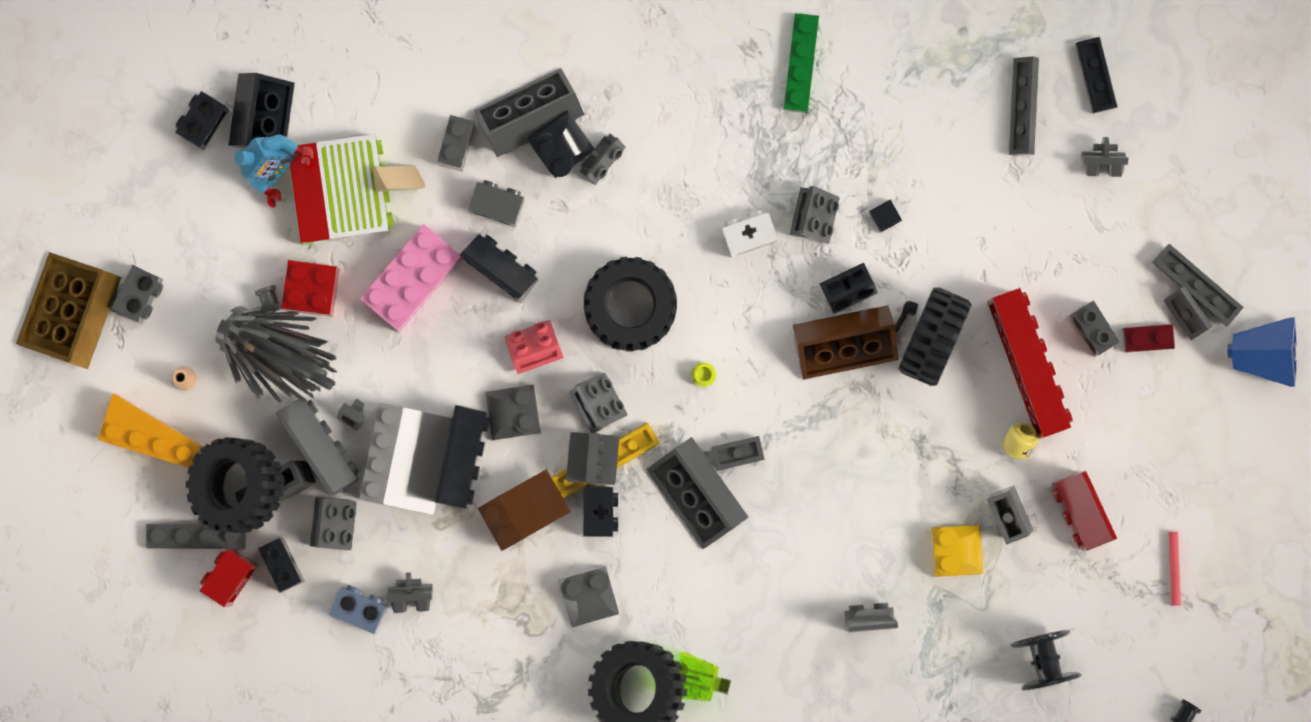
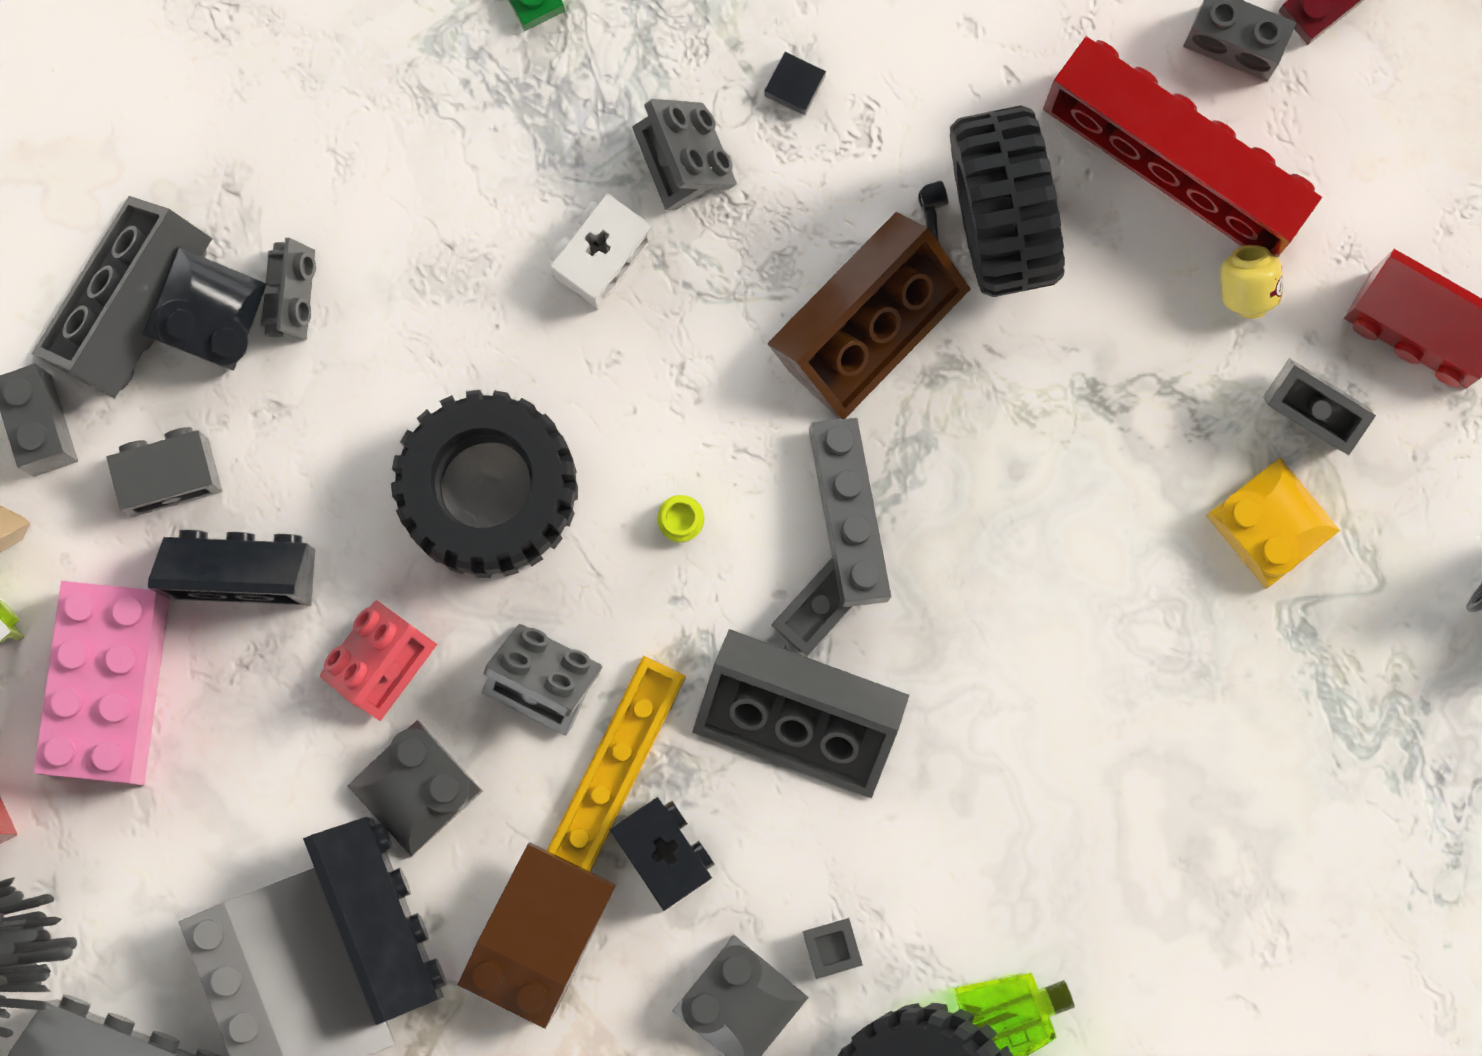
camera: 30 degrees left, 5 degrees down
(352, 414) = (151, 972): dark grey tile -> none
(592, 458) = (592, 772): dark grey bracket -> none
(643, 600) = (832, 948): none -> dark grey plate
(777, 421) = (849, 512): none -> dark grey plate
(848, 288) = (815, 226): black brick -> none
(870, 619) = (1218, 725): dark grey slope -> none

